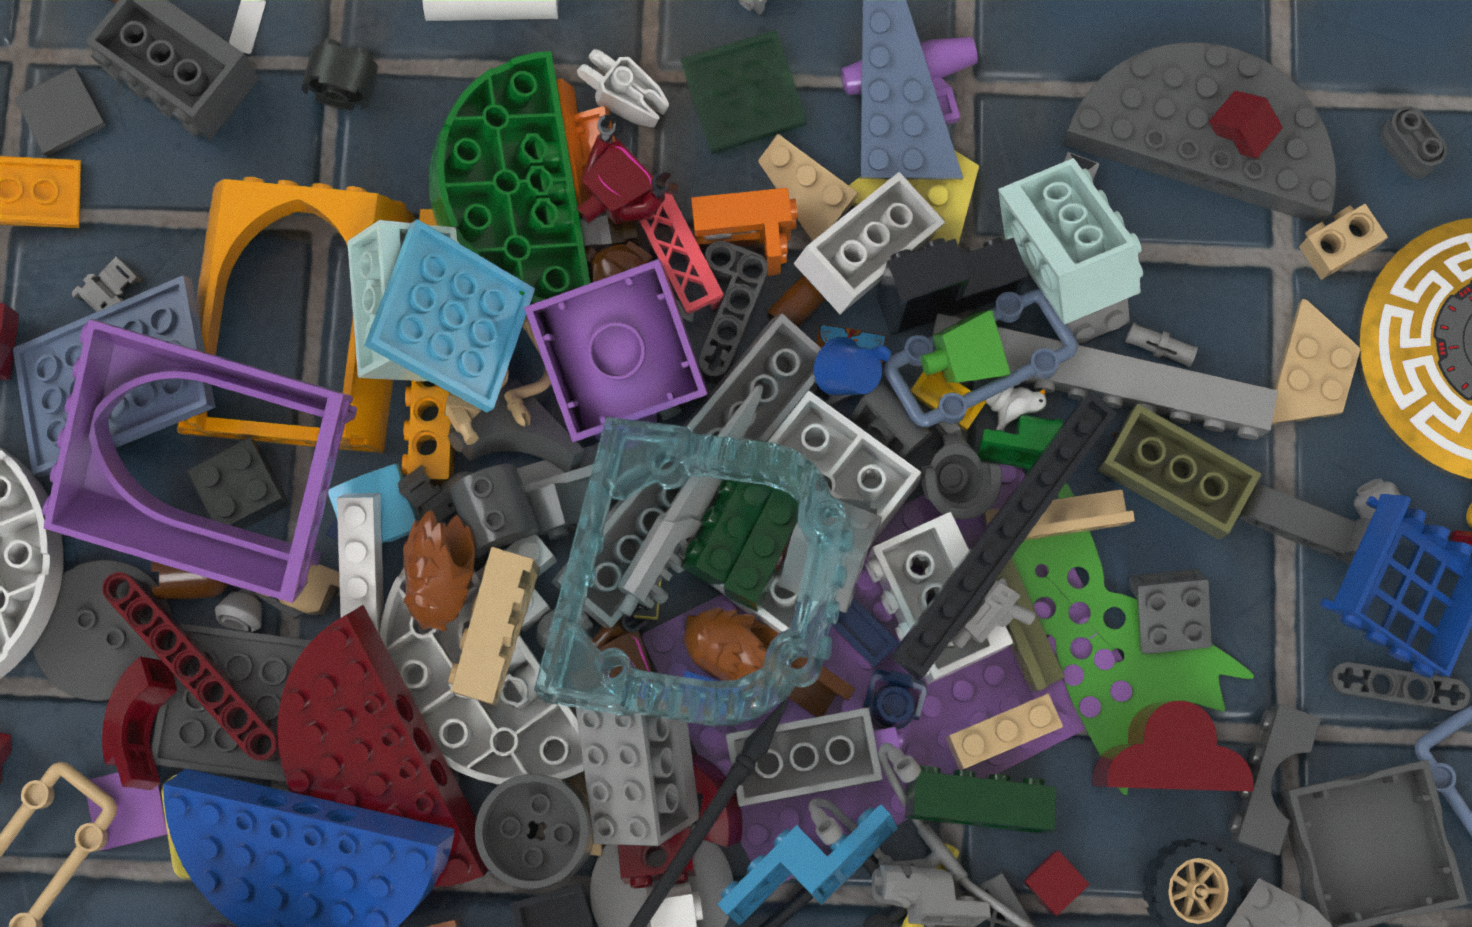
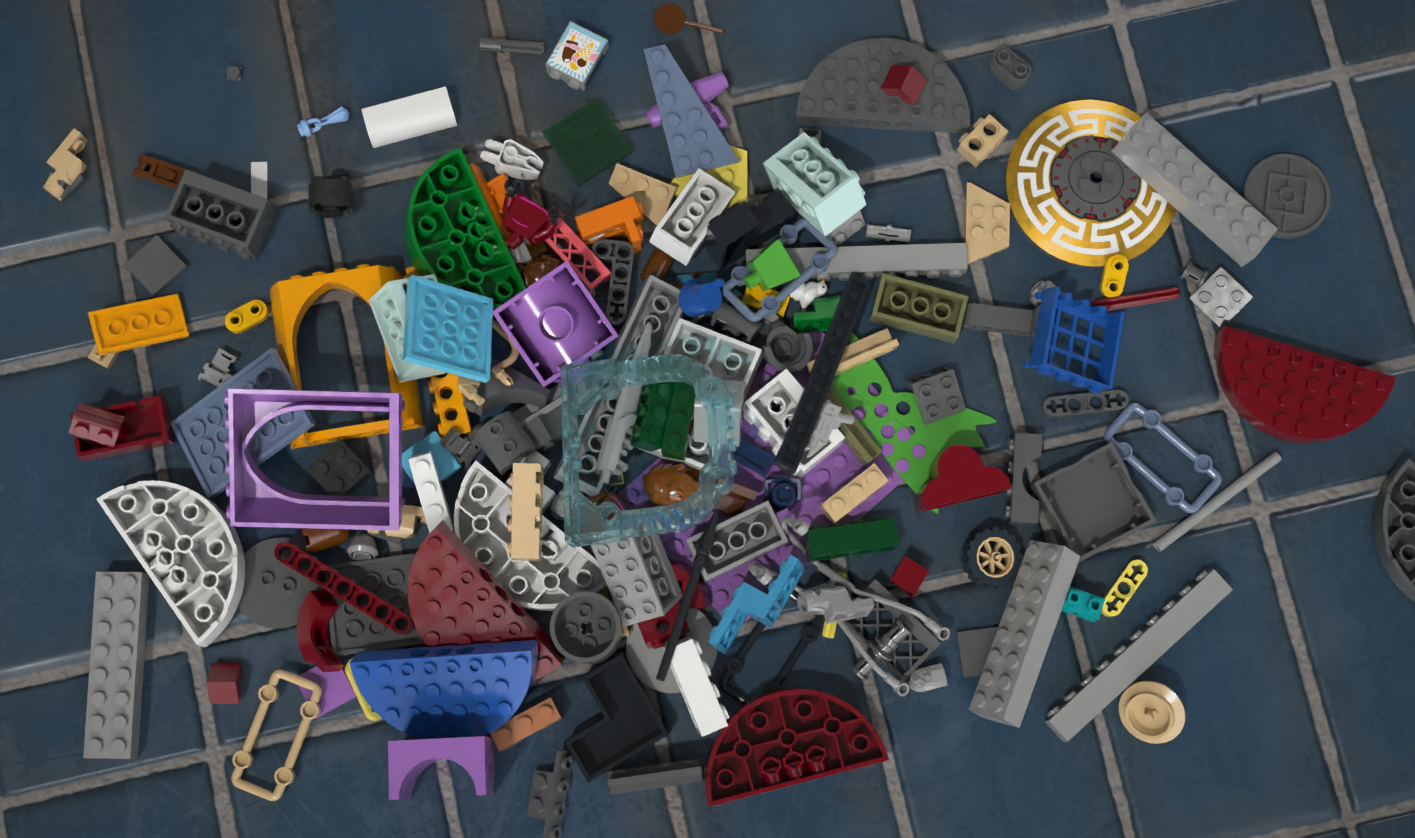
camera: 20 degrees left, 0 degrees up
(169, 223) = (246, 317): none -> yellow plate
(438, 570) = (482, 487): dark orange head -> none

